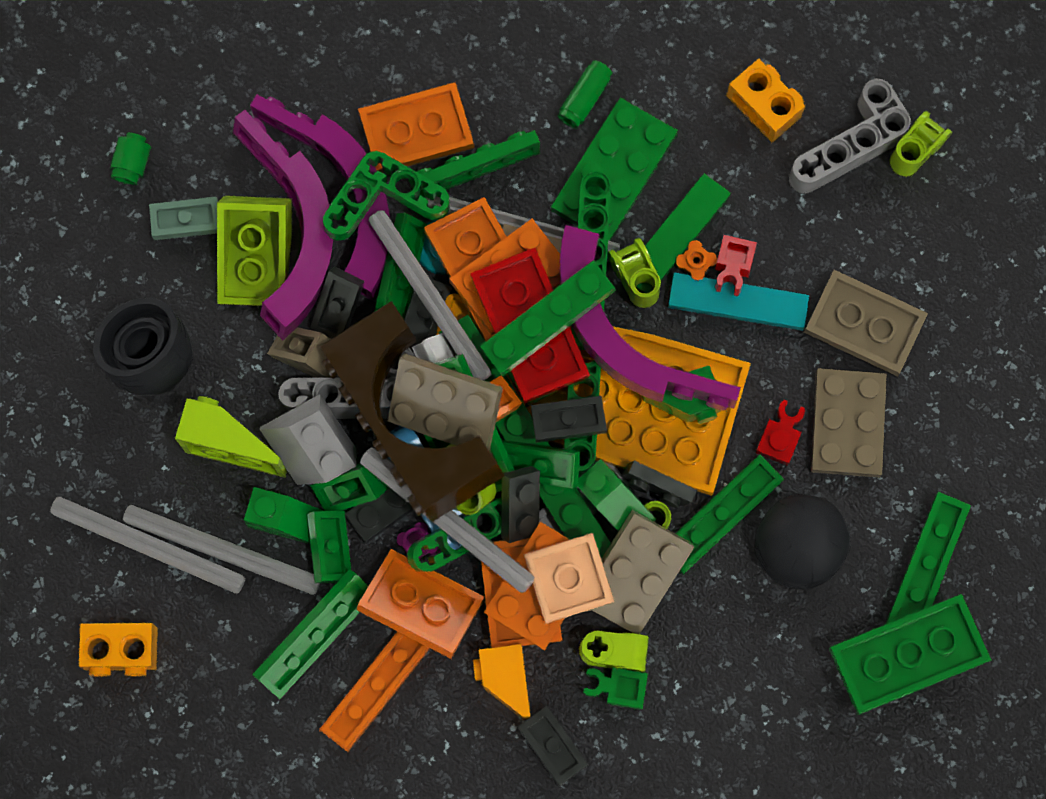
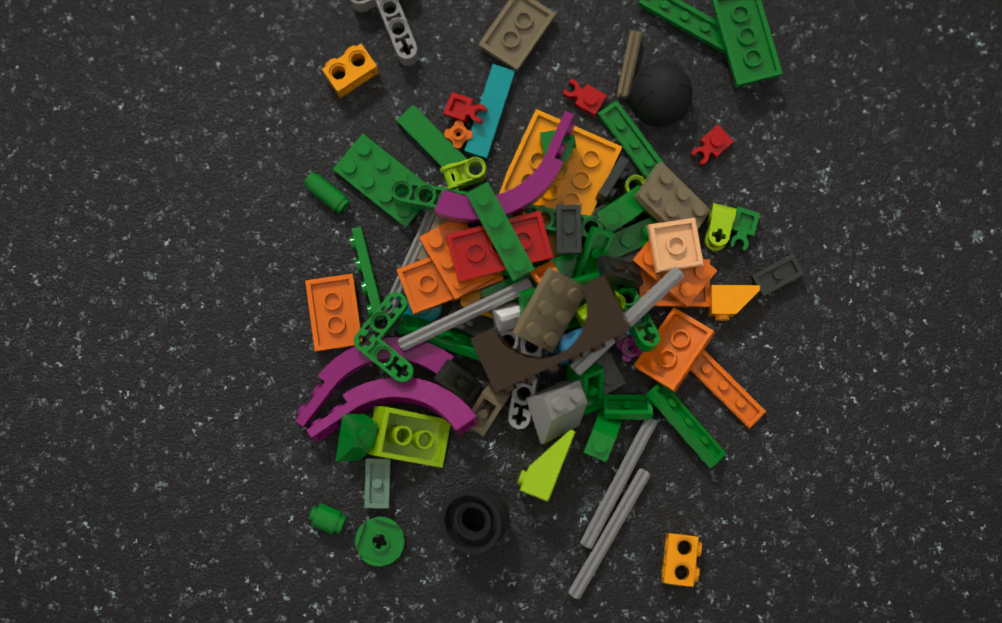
camera: 85 degrees left, 5 degrees up
(115, 250) = (392, 534): none -> green plate
(243, 176) = (355, 437): none -> green slope
(741, 631) = (713, 143): none -> red plate
(844, 491) = (629, 64): none -> dark tan axle
(848, 423) = (582, 53): dark tan plate -> none

